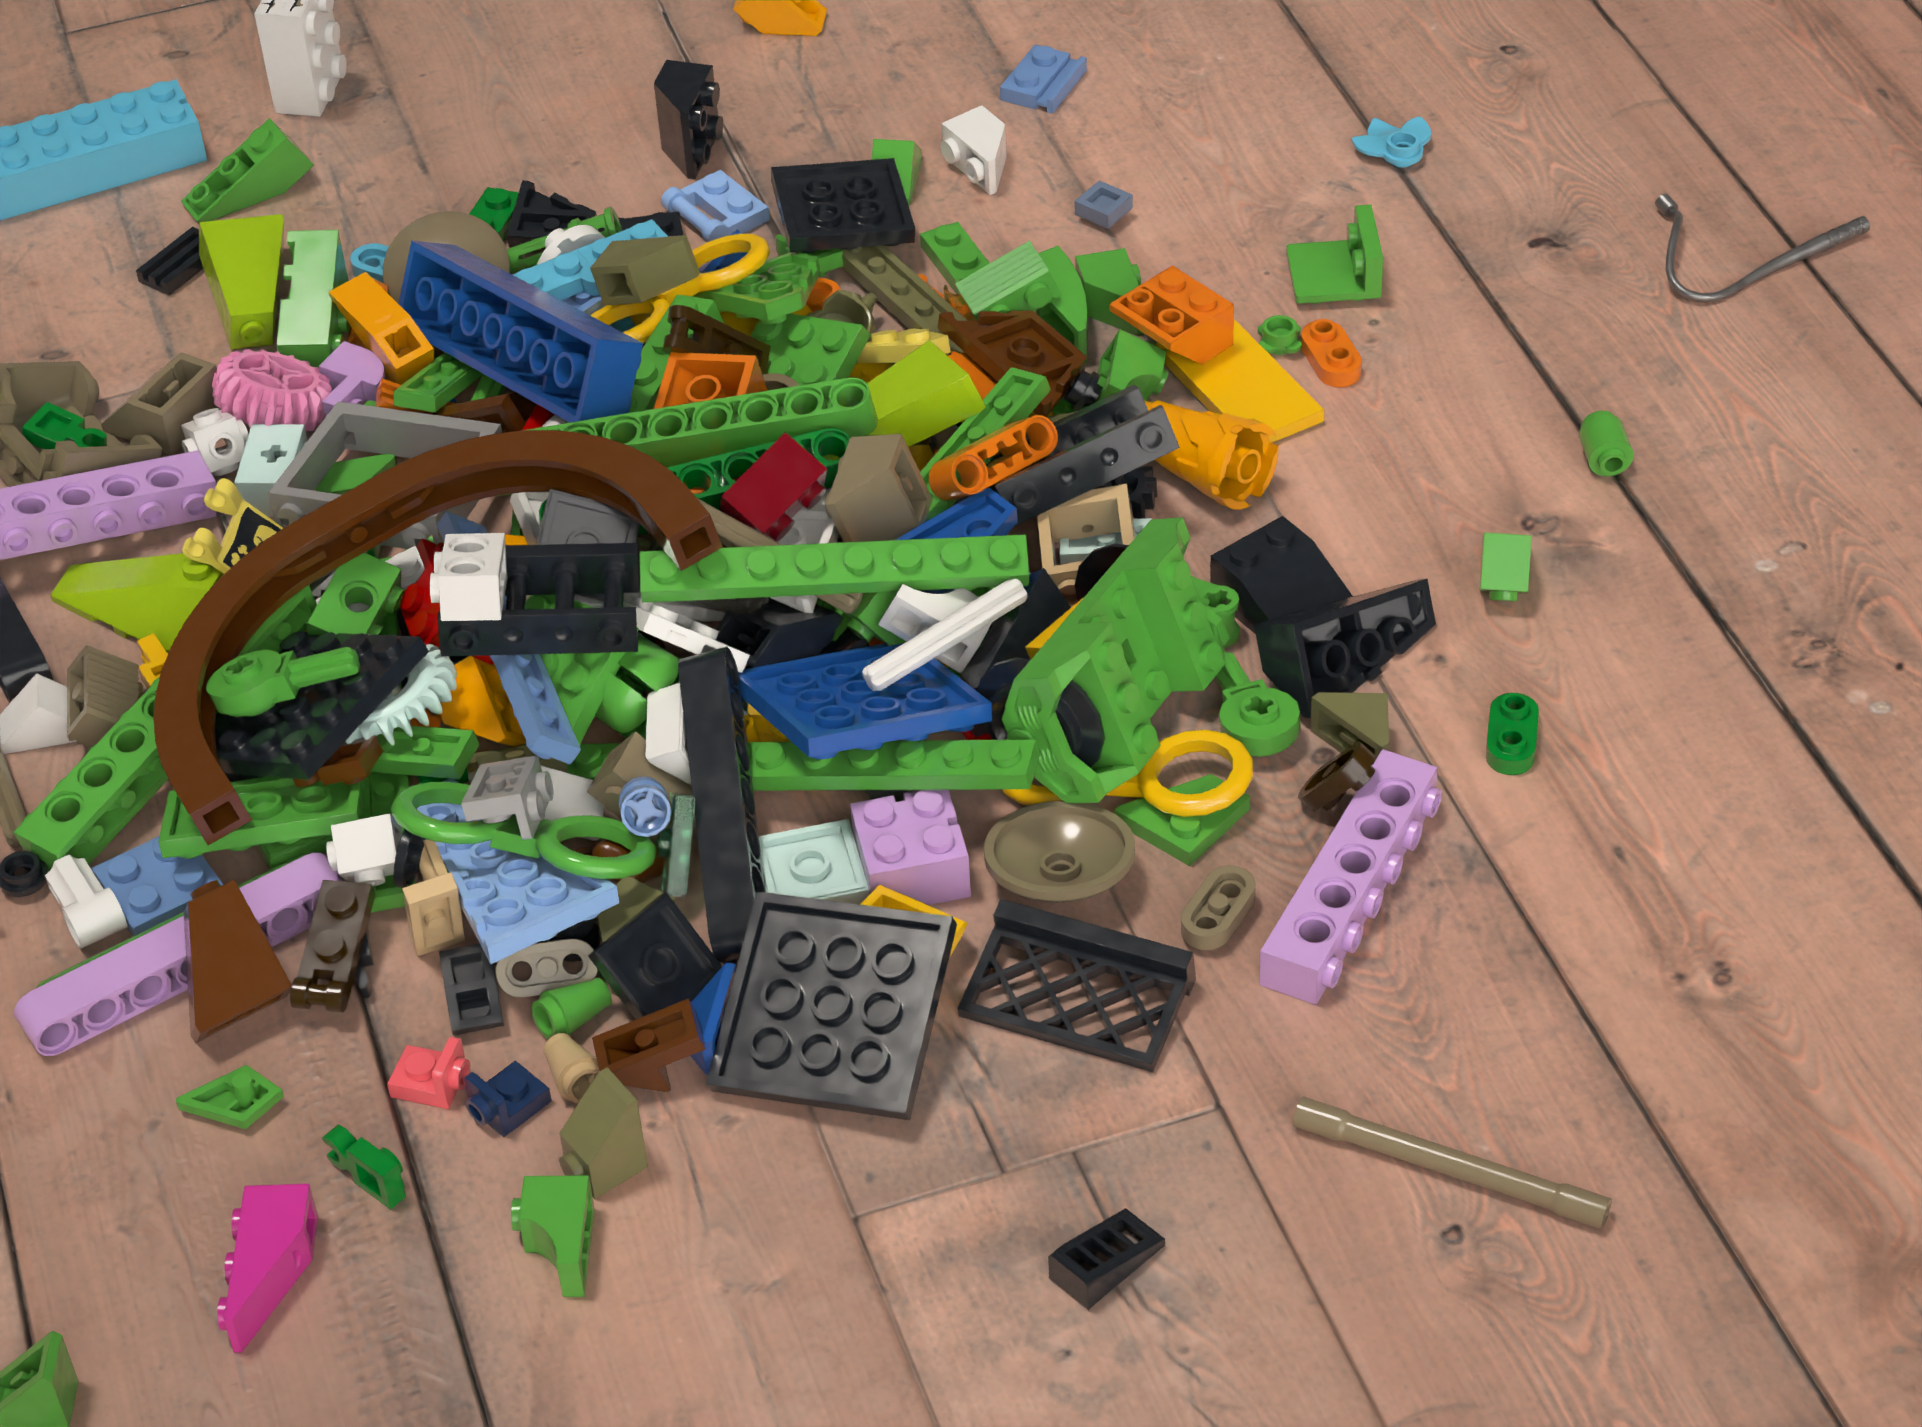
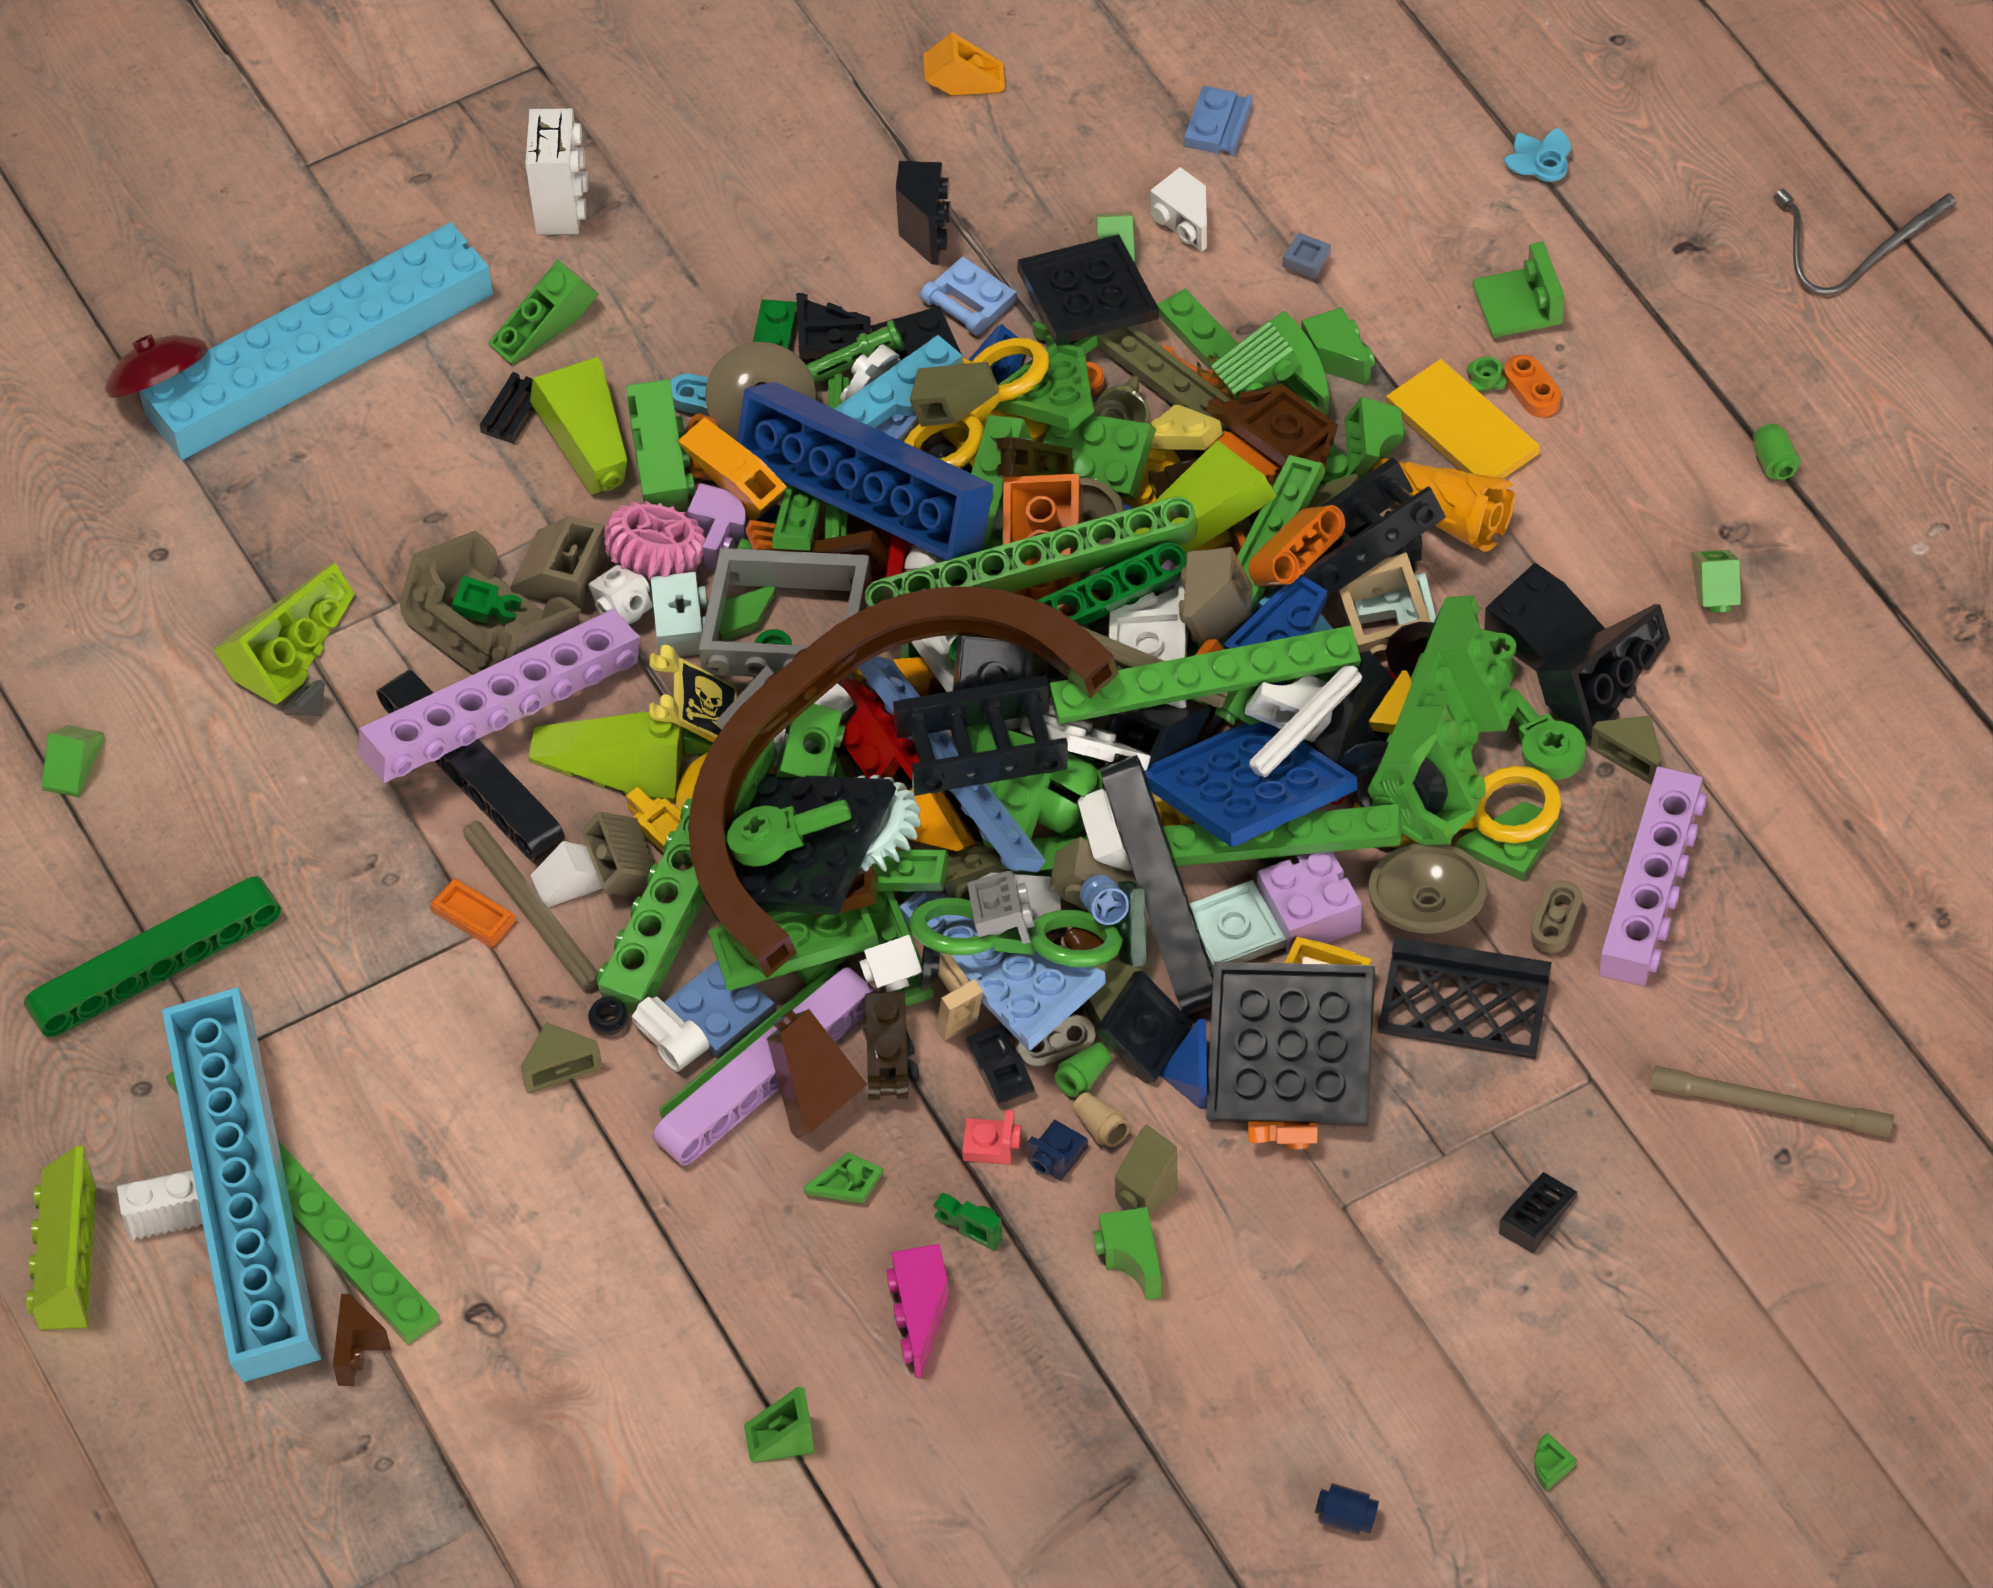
camera: 10 degrees left, 10 degrees up
(470, 577) = (932, 731): white brick -> none
(644, 1047) = (1158, 1095): reddish brown slope -> none
(776, 489) = (1137, 607): dark red brick -> none
(811, 1119) = (1291, 1134): none -> orange plate
(1083, 390) = (1343, 458): black plate -> none
(1179, 314) = (1404, 373): orange slope -> none
(1332, 780) = (1627, 795): dark brown plate -> none
(1512, 733) = (1749, 728): green plate -> none

